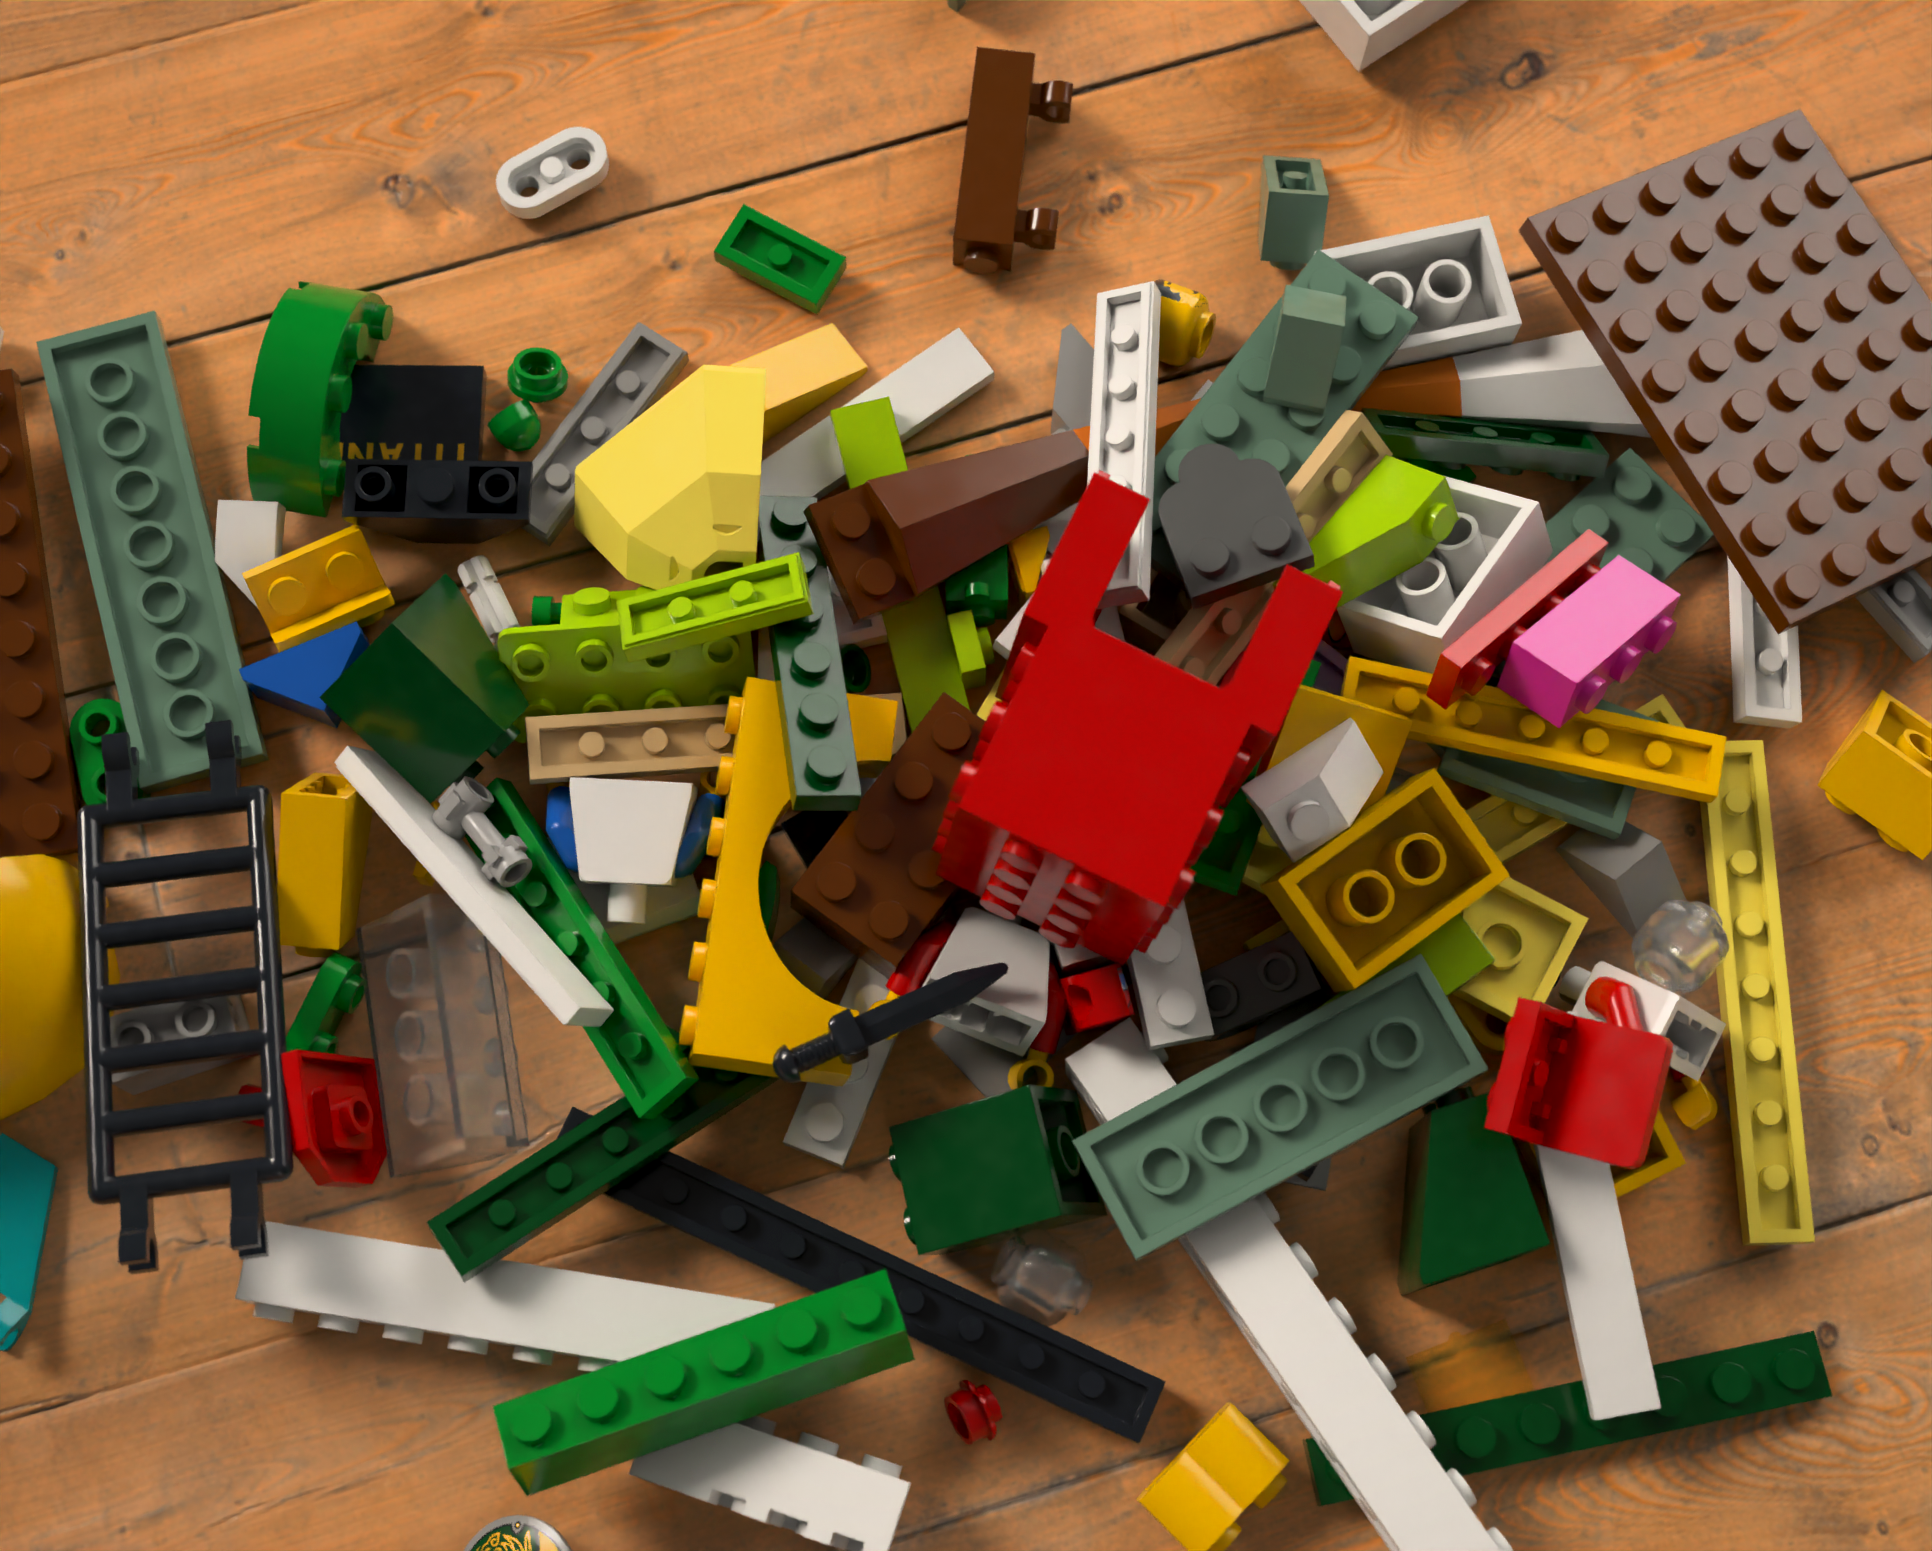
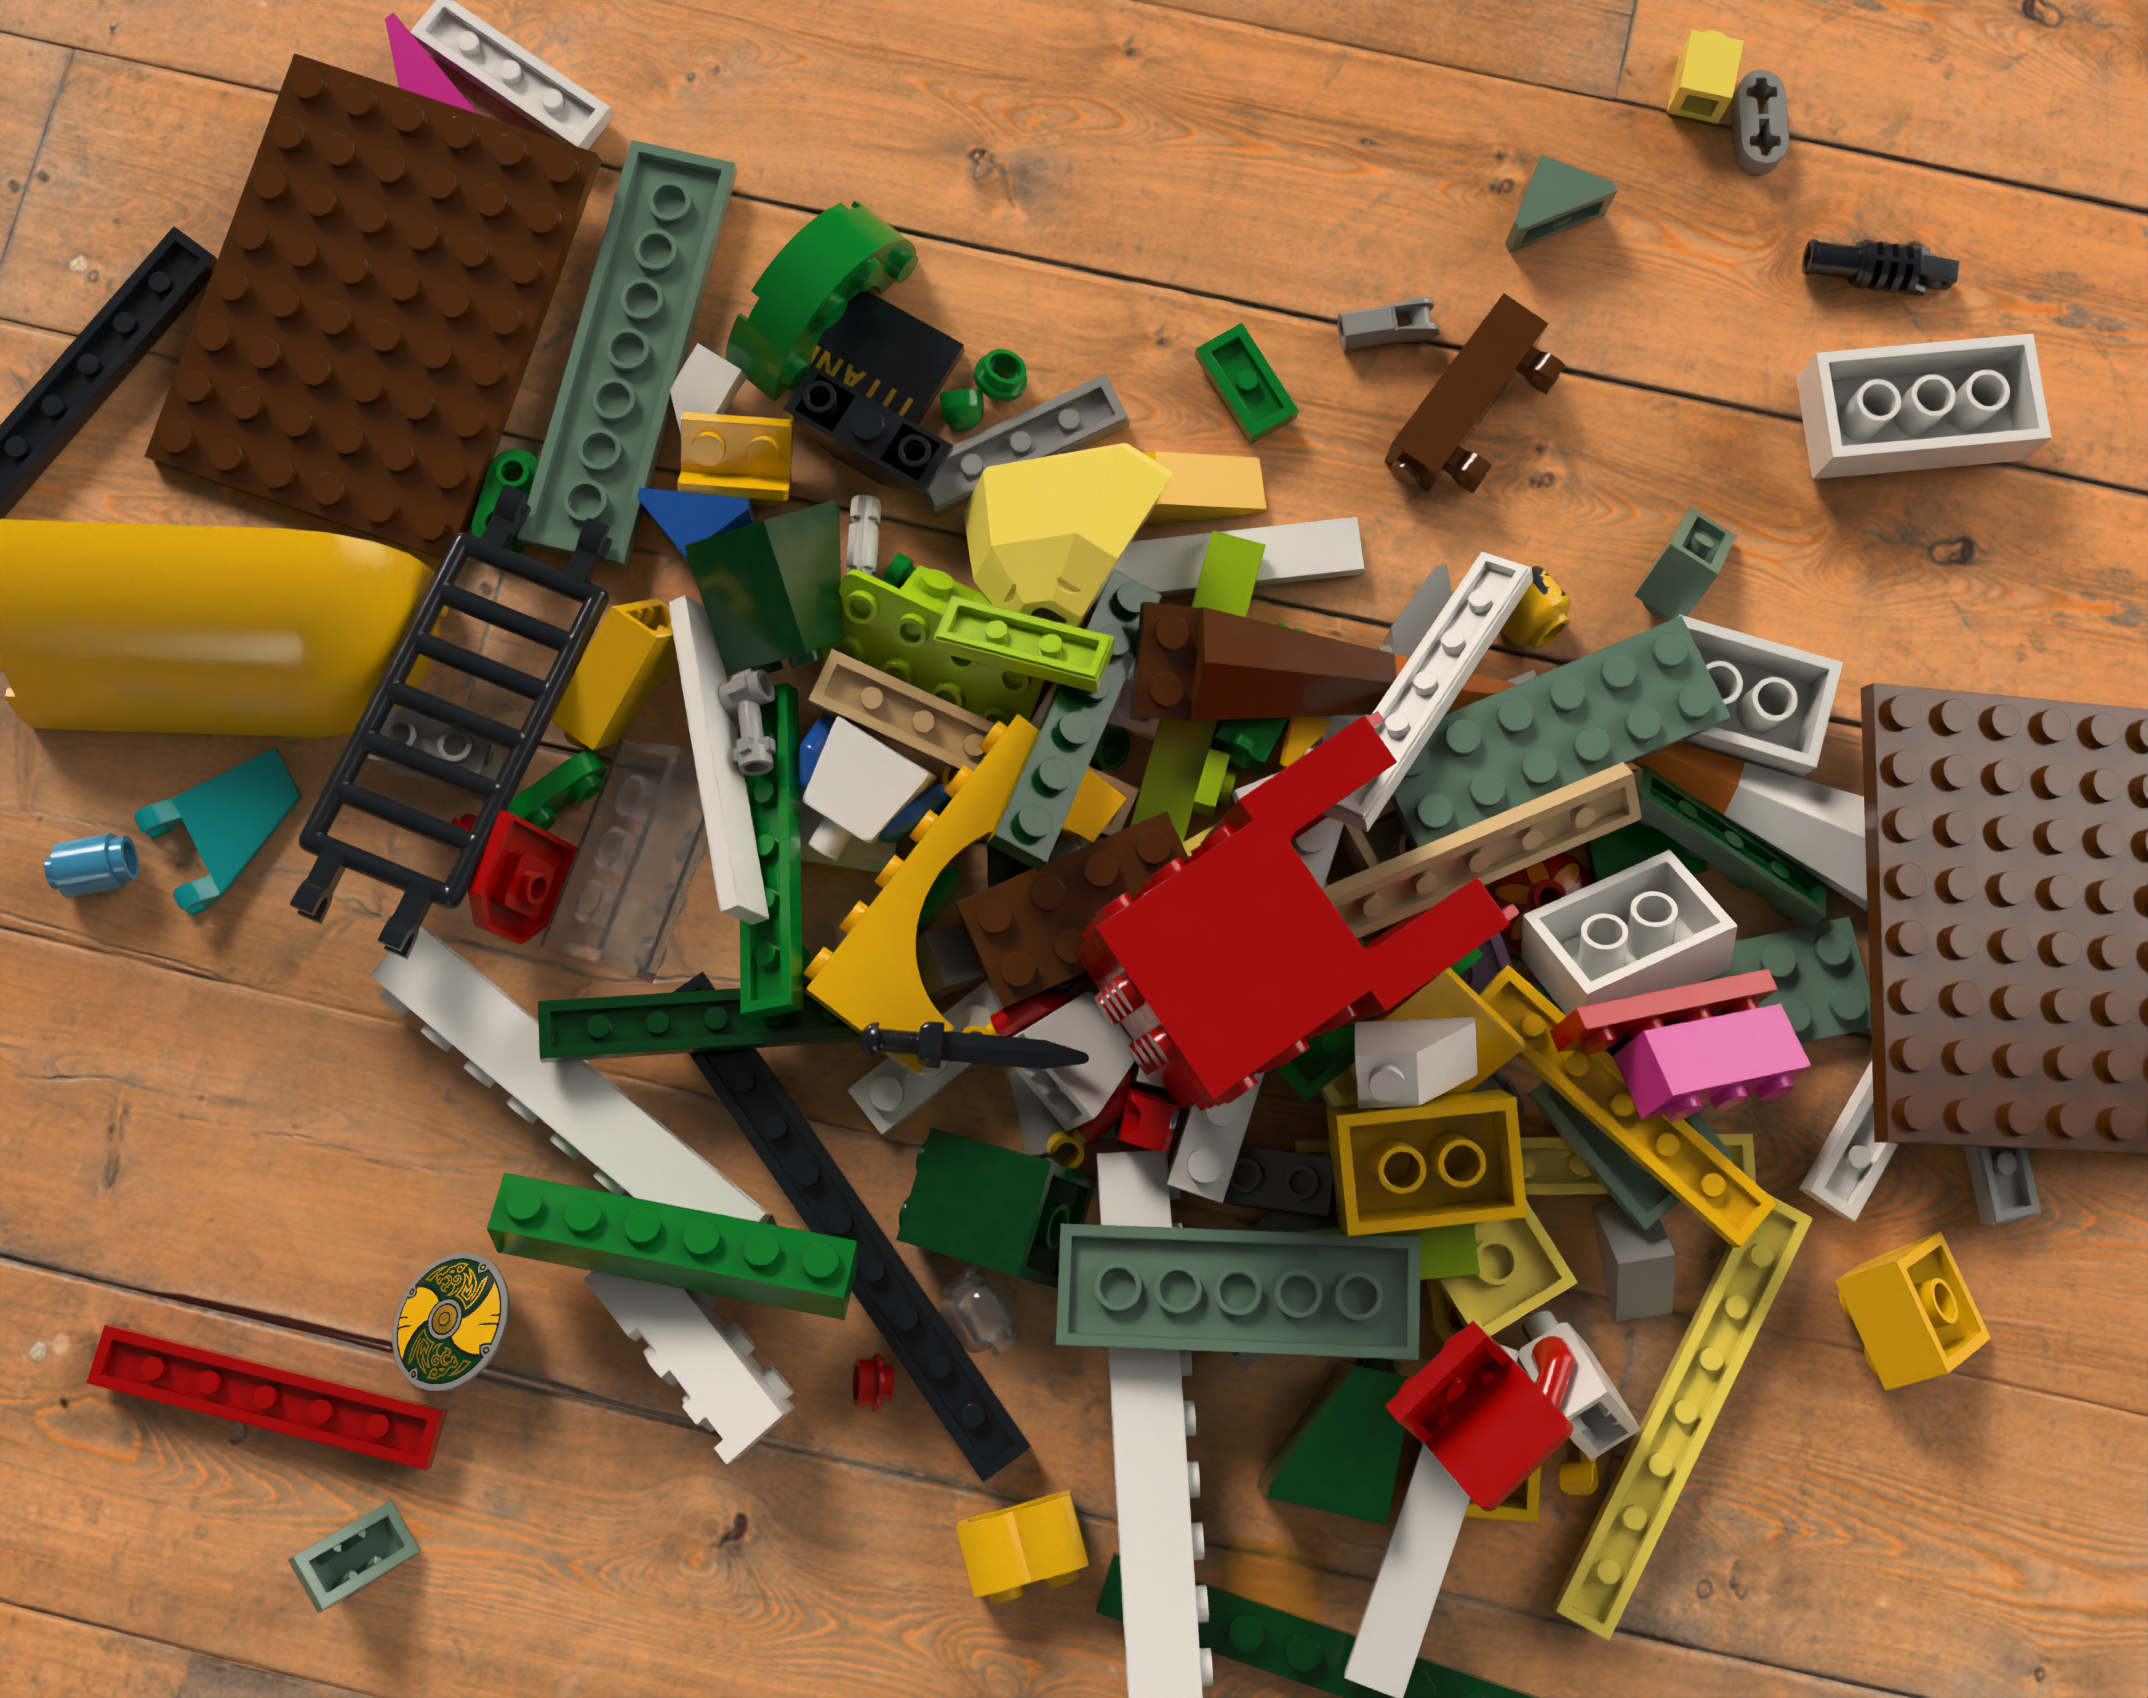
camera: 30 degrees right, 5 degrees up
(550, 171) = (1105, 210): white plate -> none
(877, 140) = (1380, 325): none -> light grey bar
(1230, 525) = (1470, 806): dark grey plate -> none
(1305, 349) = (1619, 693): sand green slope -> none
(1383, 528) = (1585, 877): lime slope -> none
(1680, 945) = (1641, 1345): clear head -> none

